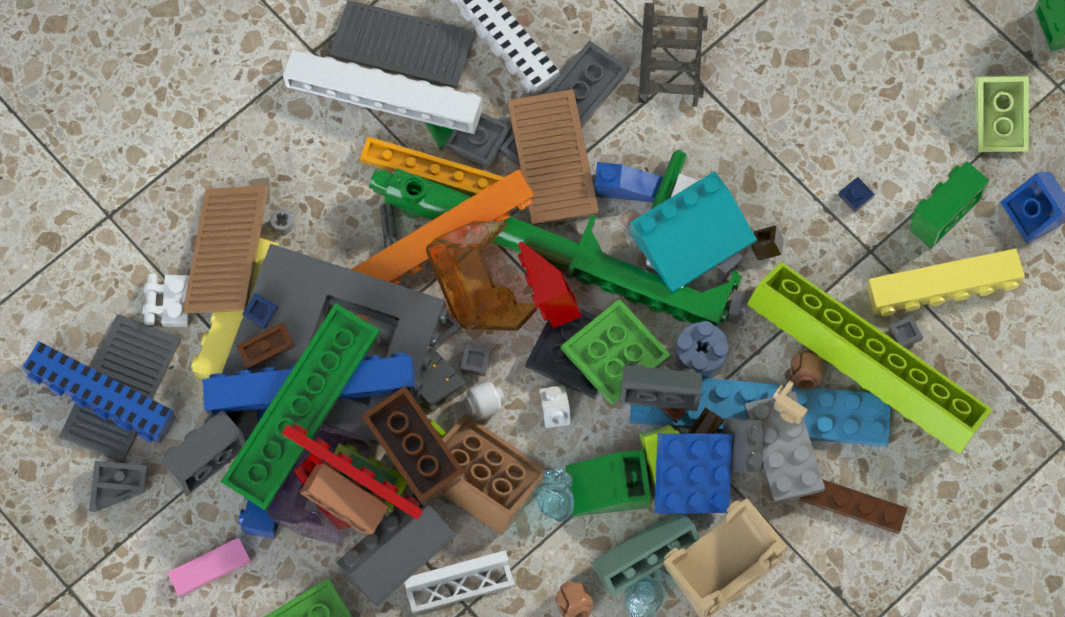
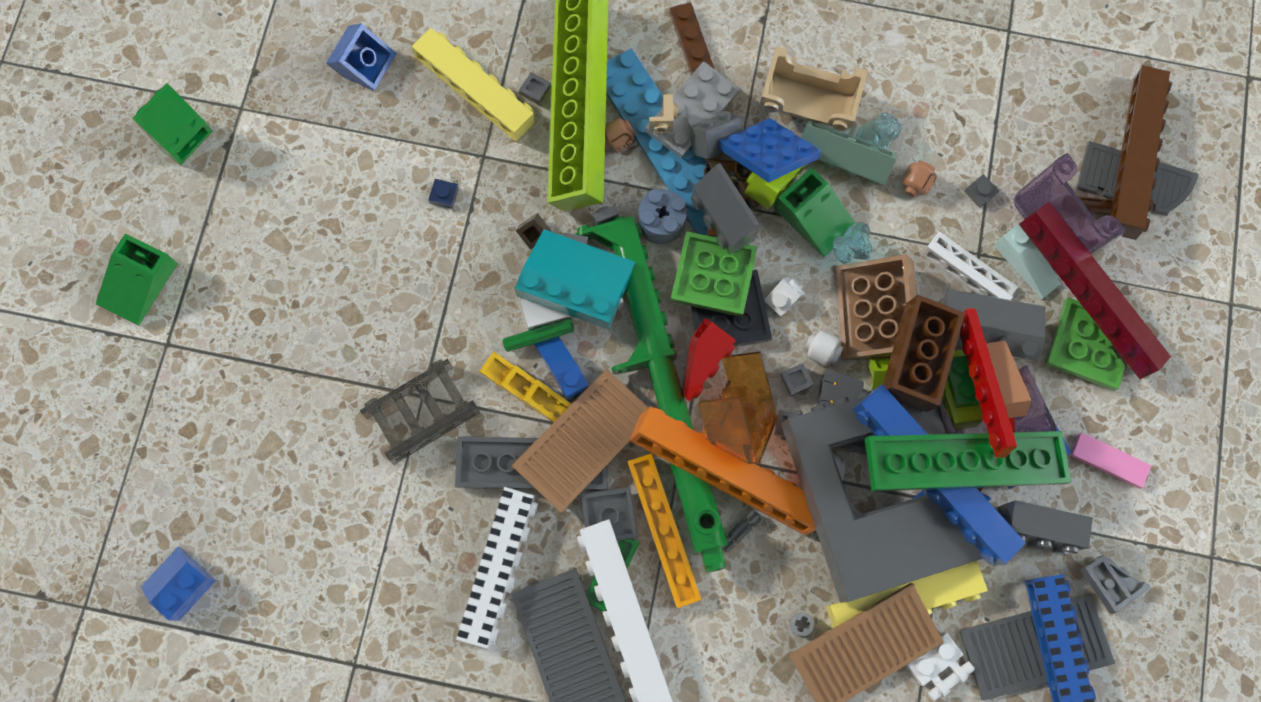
camera: 130 degrees left, 5 degrees up
(260, 310) = (912, 563): dark blue plate -> none
(265, 346) = (935, 536): reddish brown plate -> none
(634, 144) = (524, 387): none -> yellow slope
(948, 204) = (408, 113): green brick -> none
(1002, 113) = (294, 129): yellowish green slope -> none

